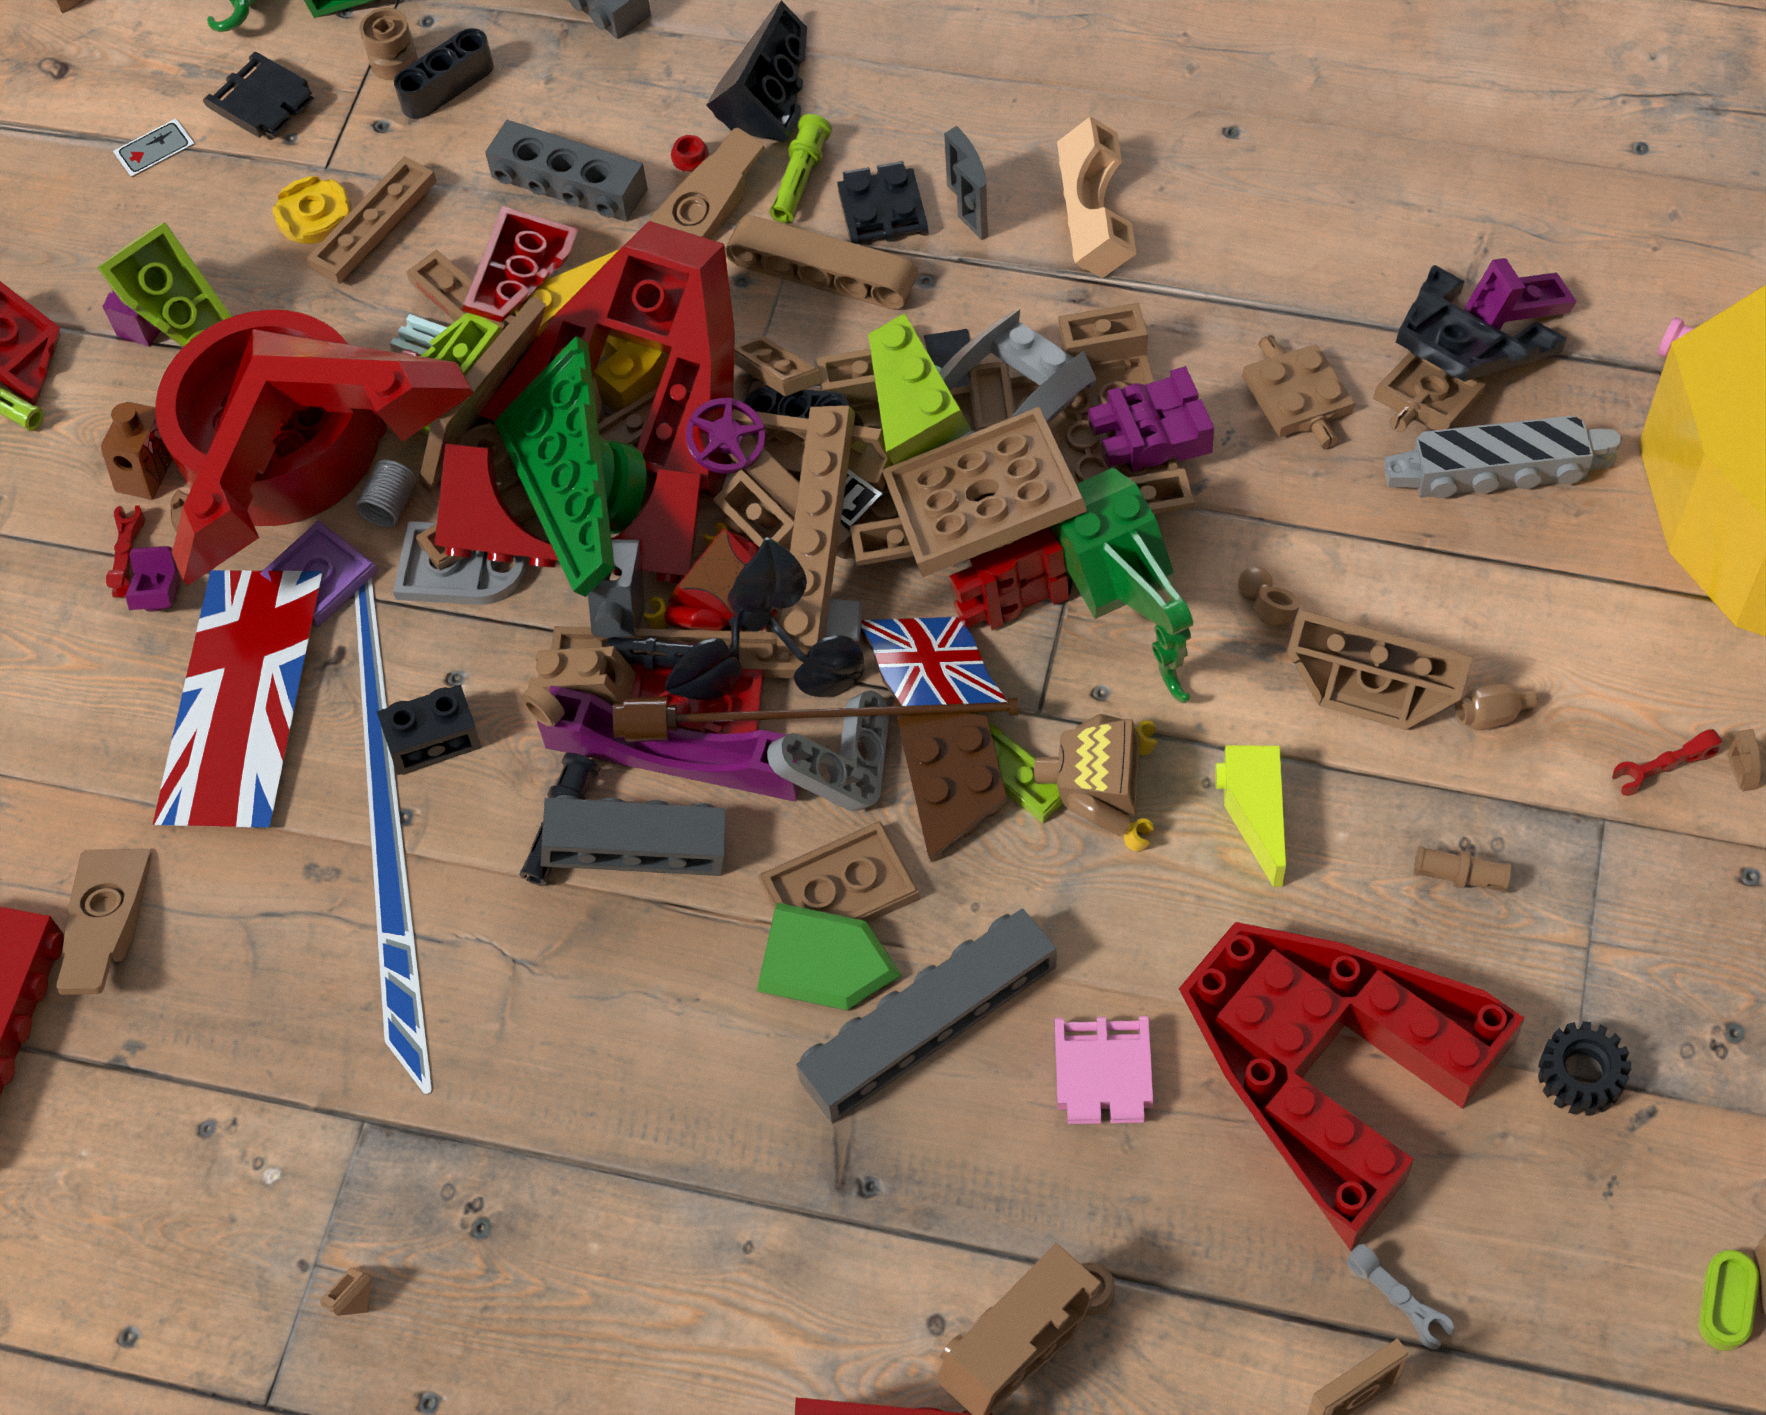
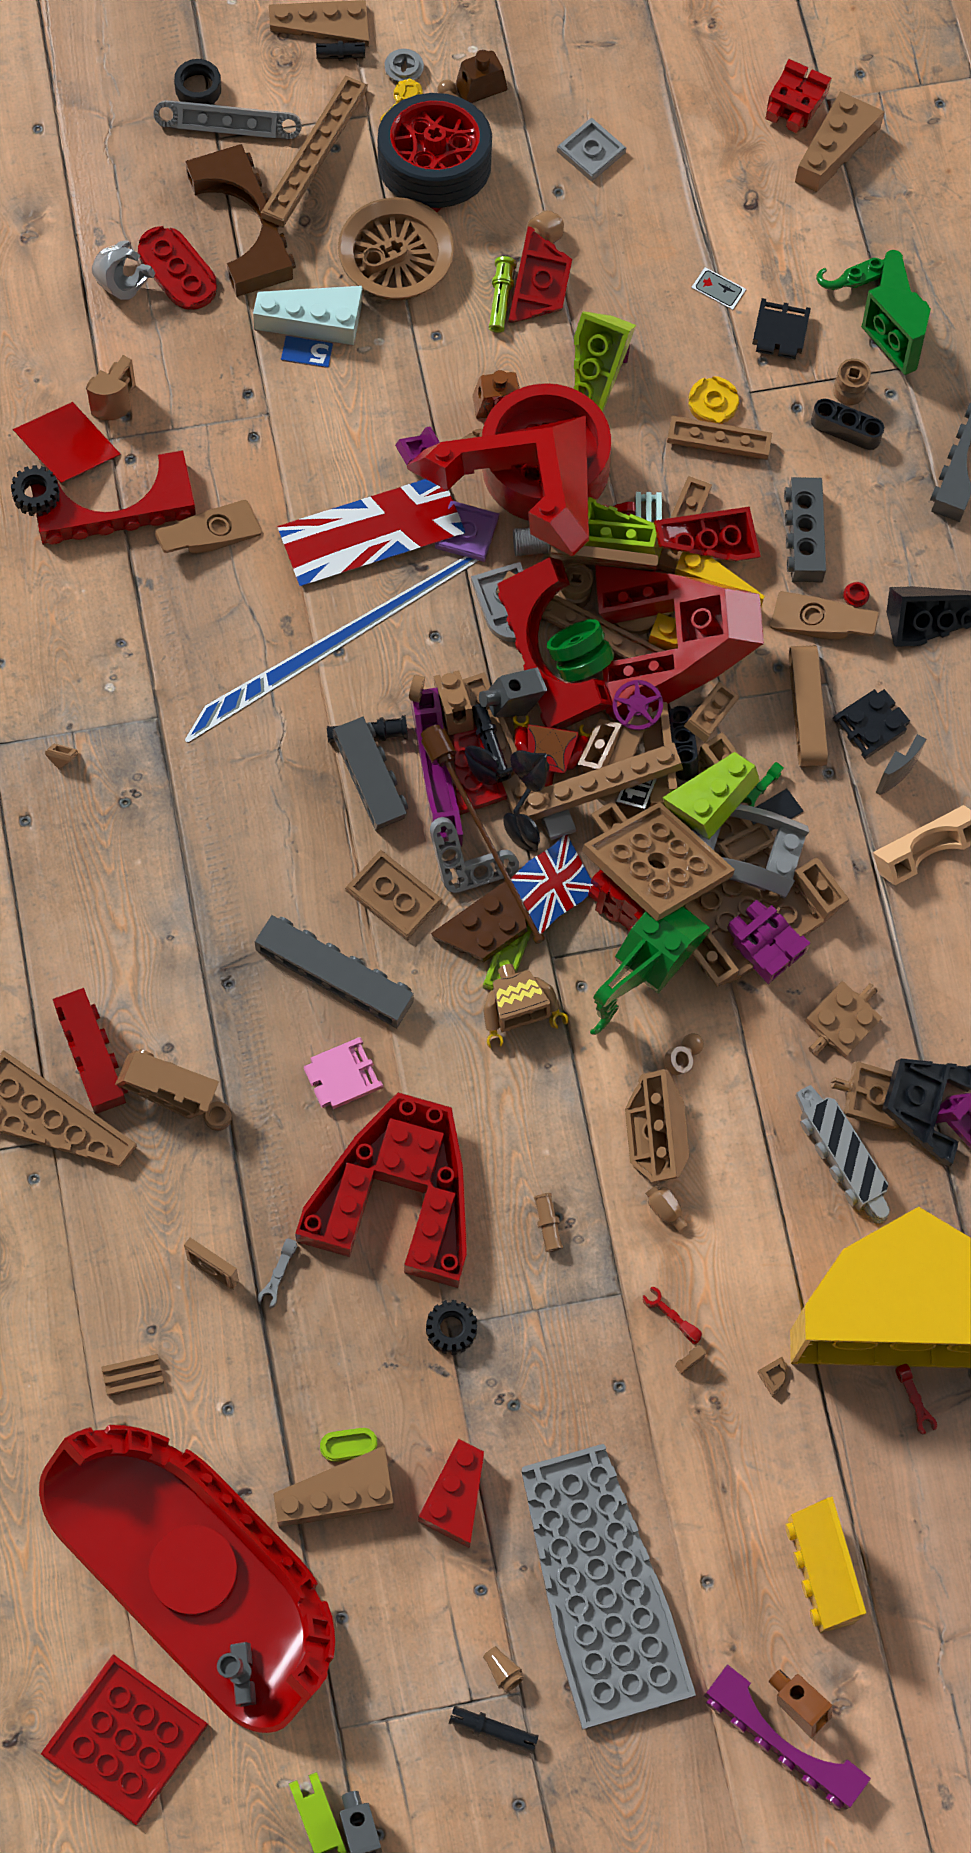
camera: 55 degrees right, 10 degrees up
(128, 529) = (415, 429): red piece -> none
(429, 729) = (391, 637): black brick -> none
(559, 460) = (580, 616): green wing -> none
(804, 154) = (886, 661): lime pin -> none
(823, 959) = (344, 904): bright green tile -> none
(1255, 802) = (544, 1093): neon yellow slope -> none

